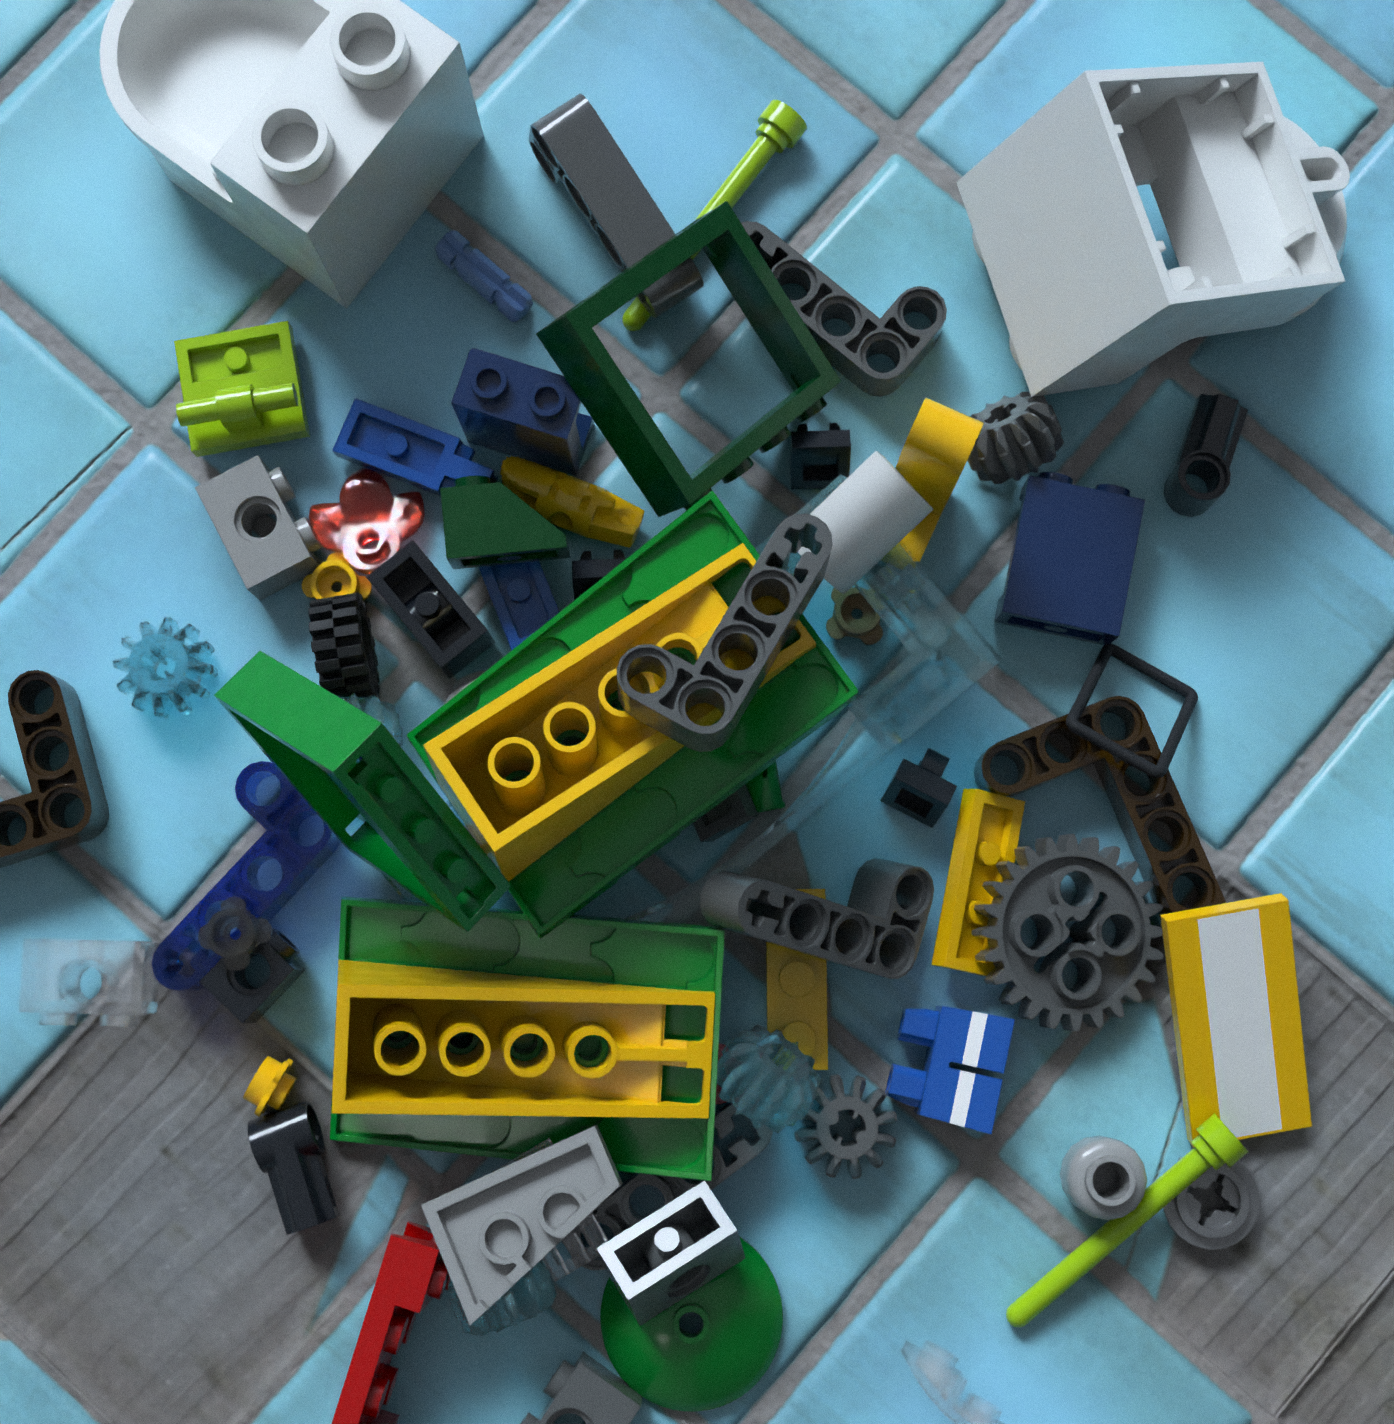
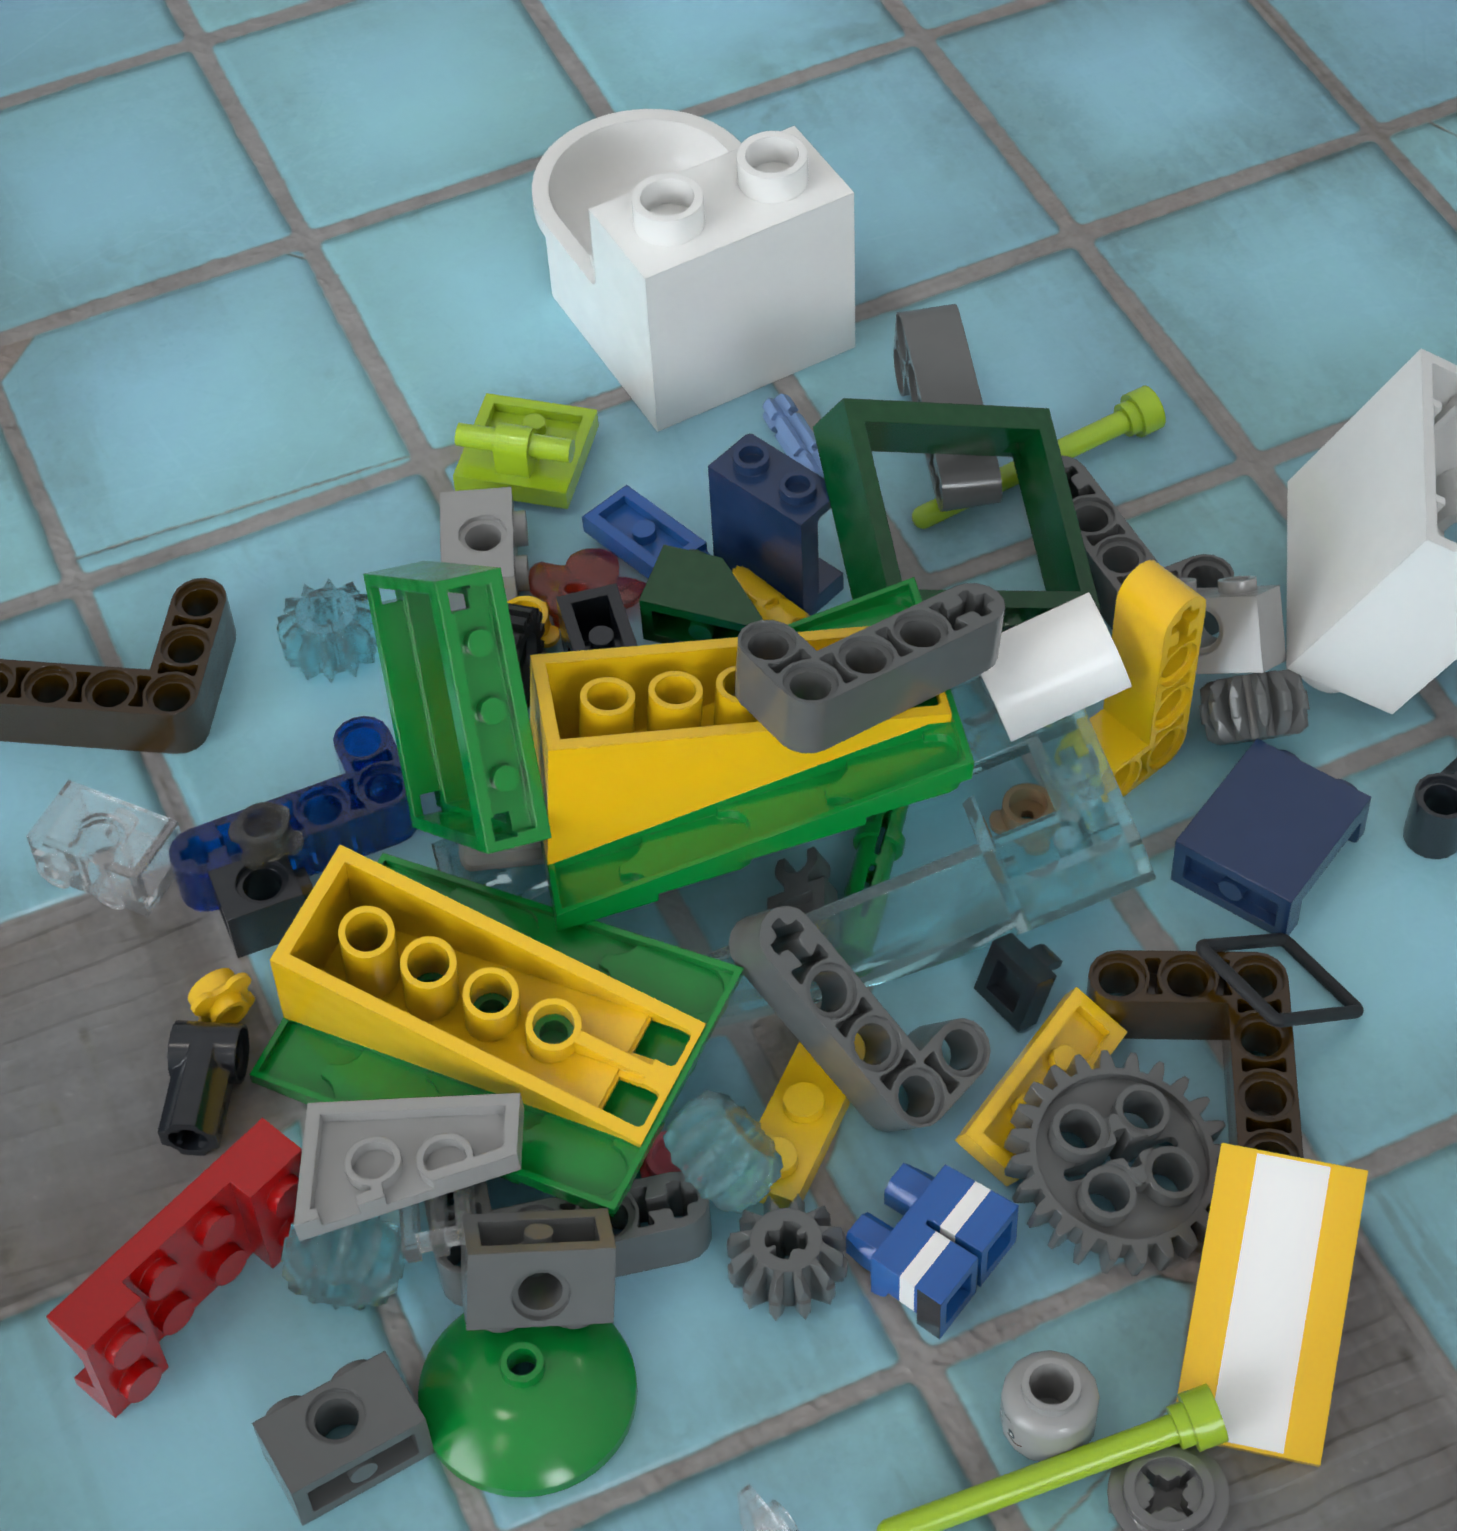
camera: 25 degrees right, 30 degrees down
(967, 375) = (1248, 624): none -> light grey brick

